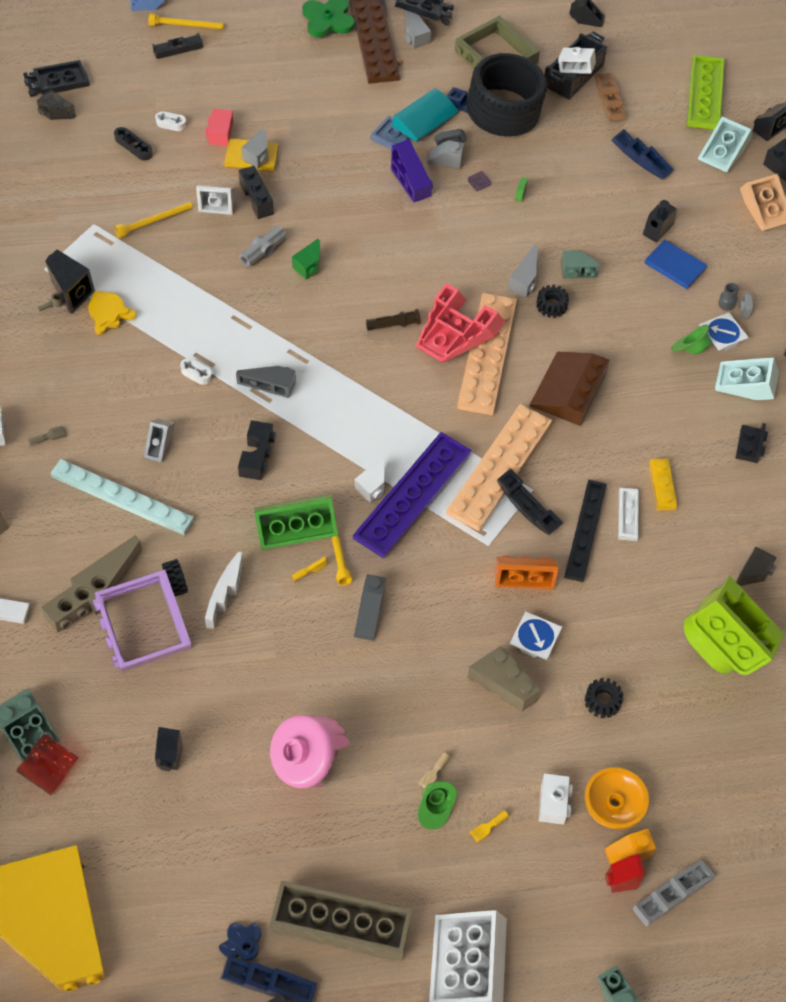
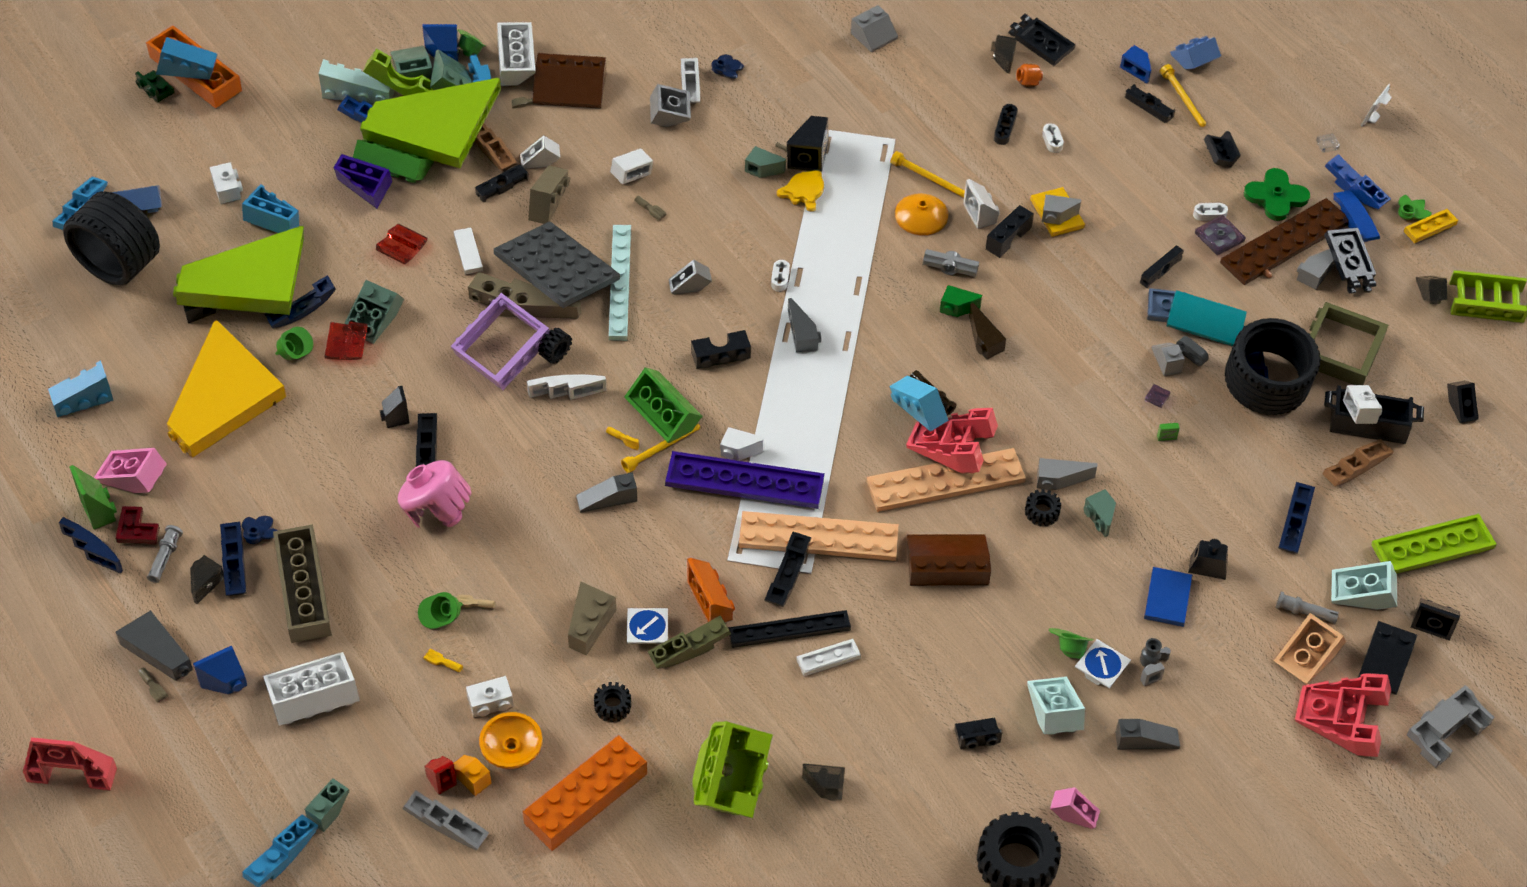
camera: 65 degrees right, 5 degrees down
(22, 816) = (294, 343): none -> bright green piece
(58, 326) = (764, 163): none -> sand green slope
(73, 537) = (556, 264): none -> dark grey plate
(92, 102) = (1029, 75): none -> orange head
(133, 32) = (1136, 63): none -> blue slope
(191, 243) = (921, 214): none -> light orange dish
(219, 127) = (1070, 174): coral brick -> none
(228, 742) = (426, 439): none -> black slope
(260, 24) = (1222, 149): none -> black bracket
(319, 65) = (1209, 211): none -> white beam
(344, 68) = (1220, 235): none -> clear purple piece
(354, 117) = (1162, 266): none -> black piece
(354, 258) = (987, 337): none -> dark brown slope
(405, 330) = (920, 401): none -> medium azure wedge
(410, 171) = (1121, 334): dark purple wedge -> none
(570, 610) = (688, 646): none -> olive slope
(663, 484) = (881, 674): yellow plate -> none
(695, 759) = (585, 792): none -> orange brick
(723, 191) = (1297, 606): none -> light grey pin

